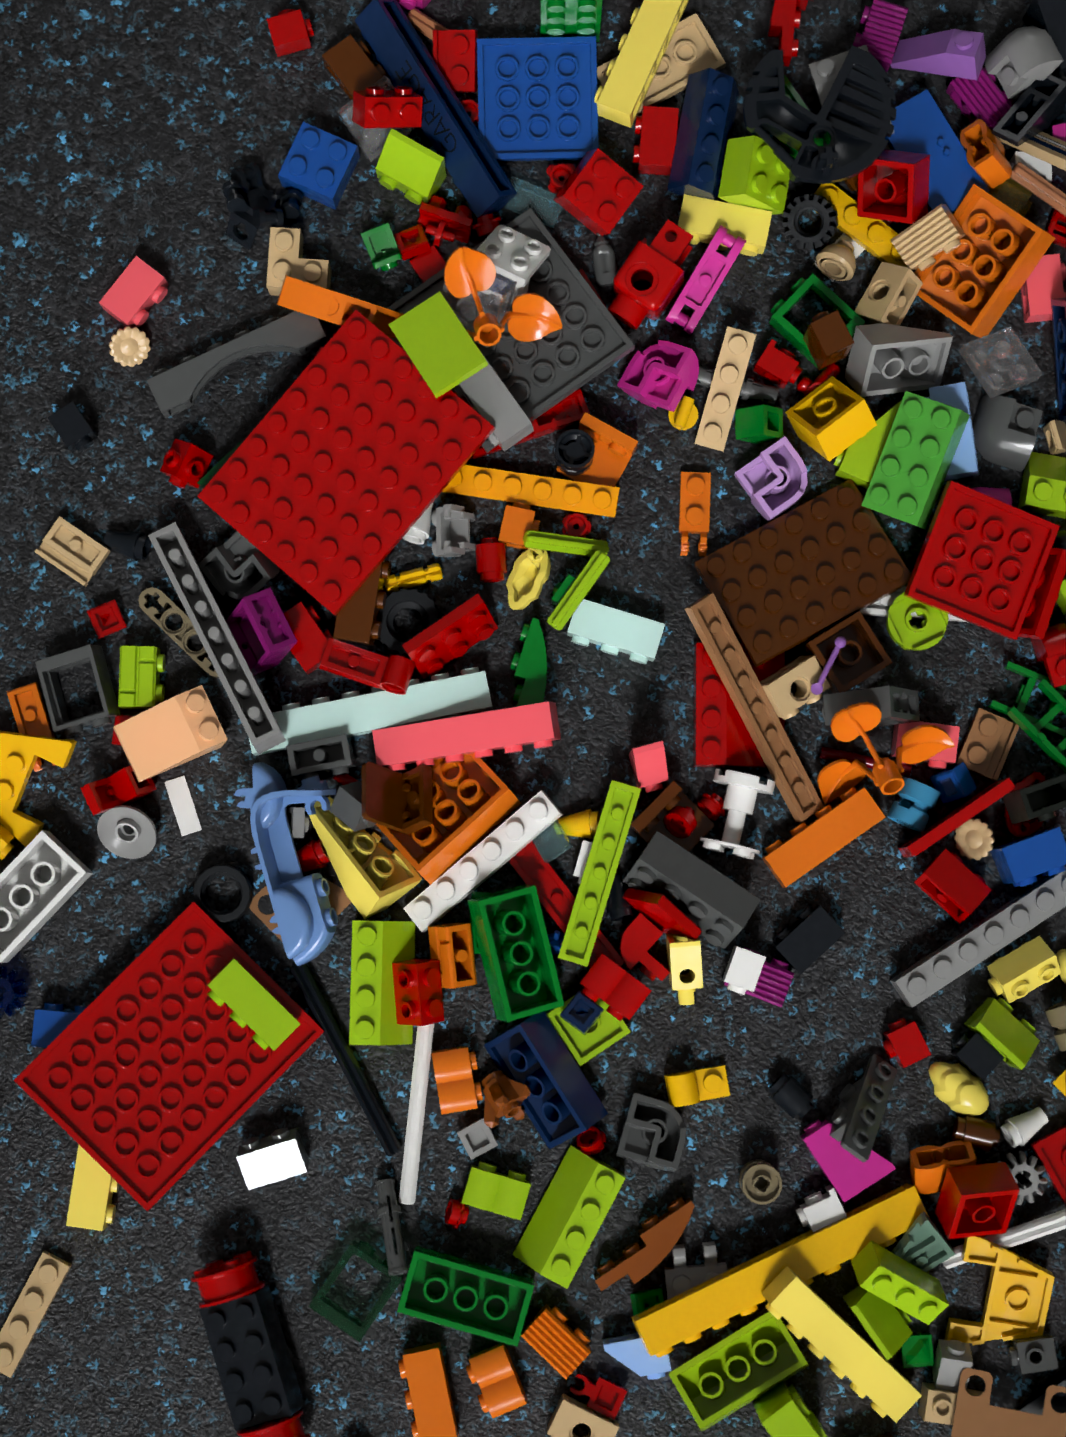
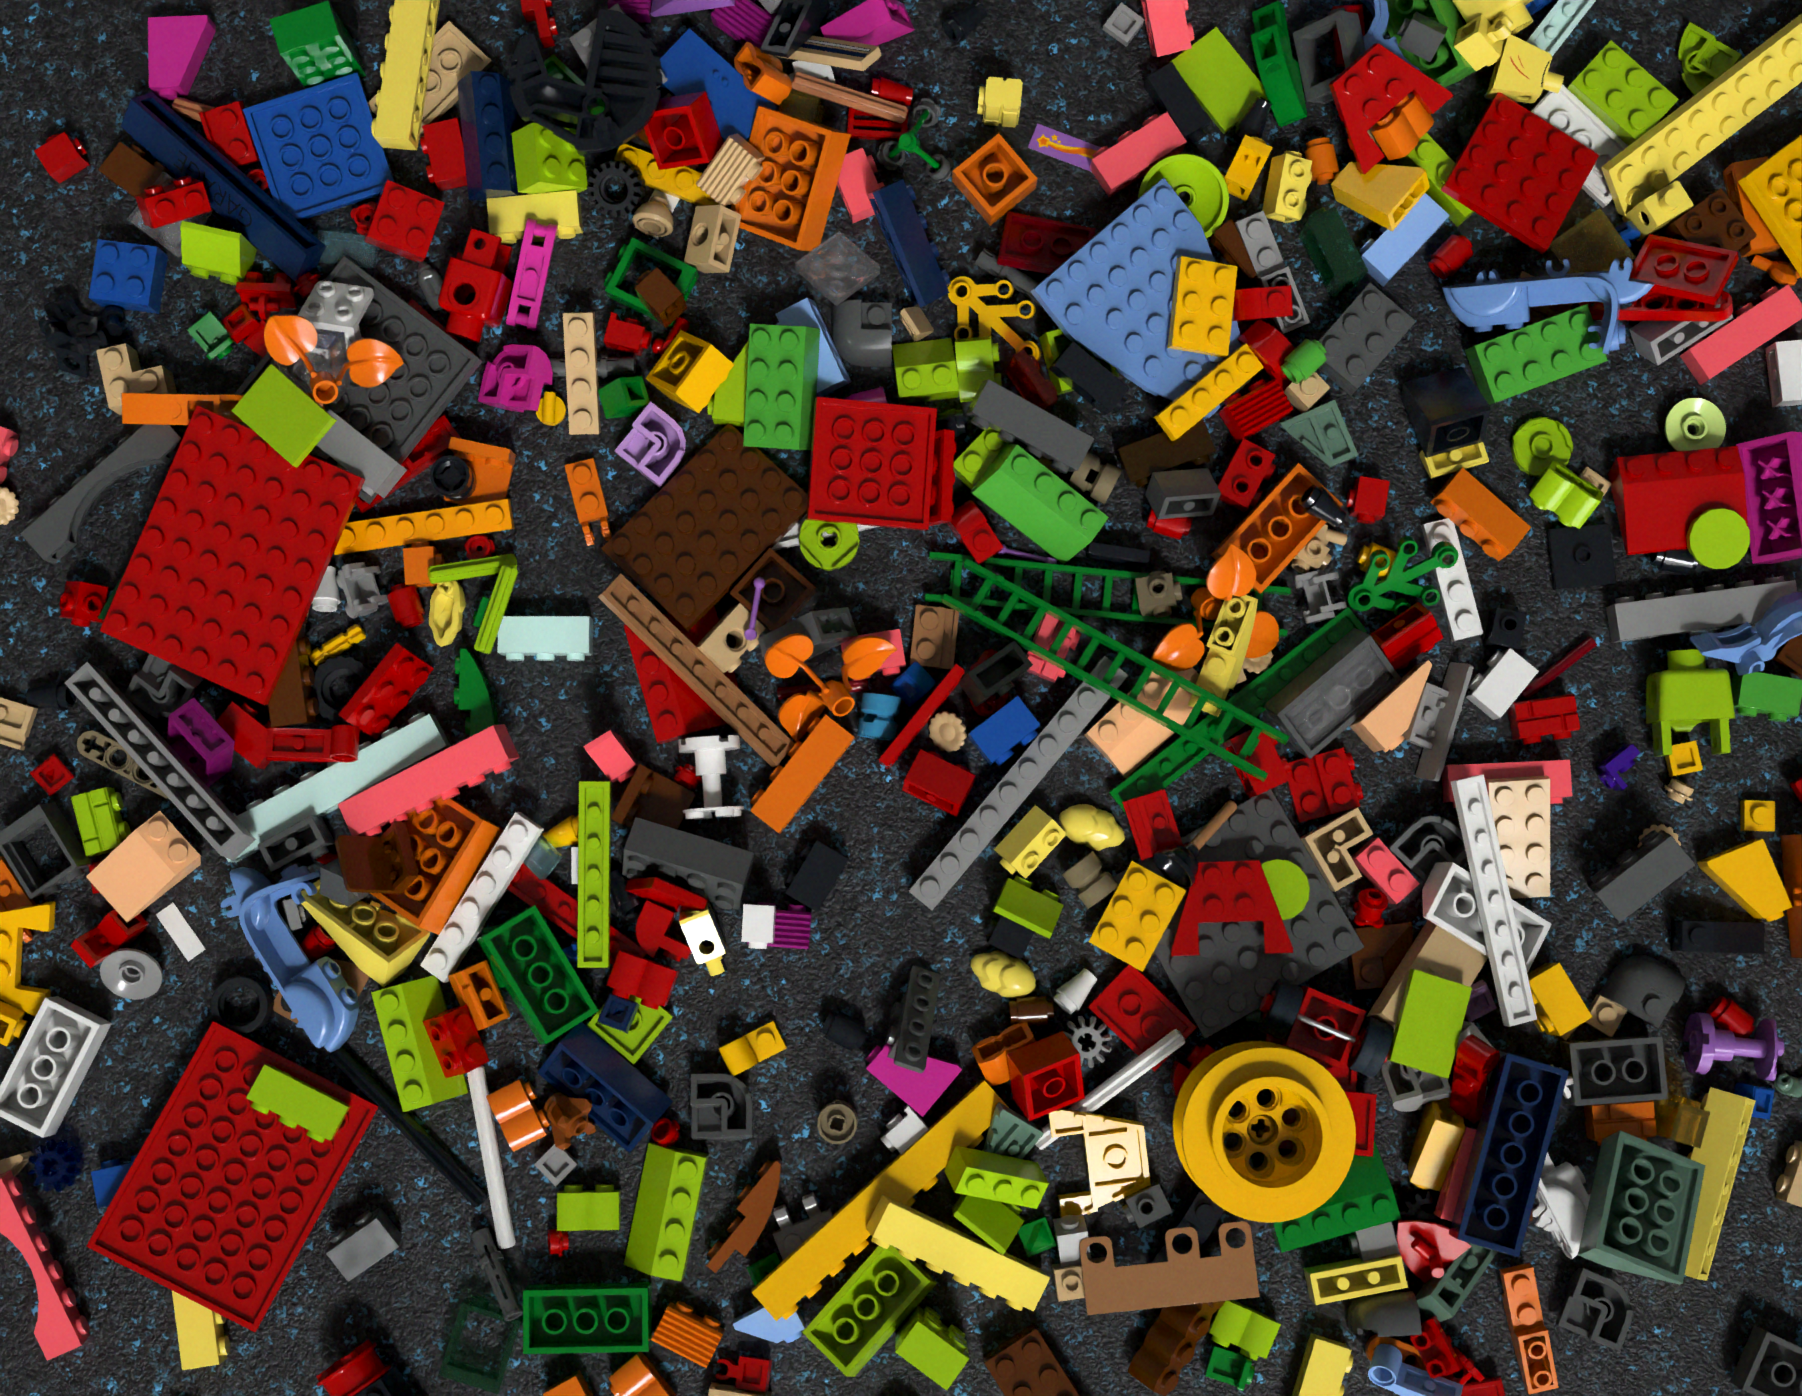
camera: 15 degrees left, 0 degrees up
(680, 821) = (660, 800): red tile -> none
(896, 359) = (735, 295): light grey slope -> none
(905, 1042) = (937, 946): red brick -> none

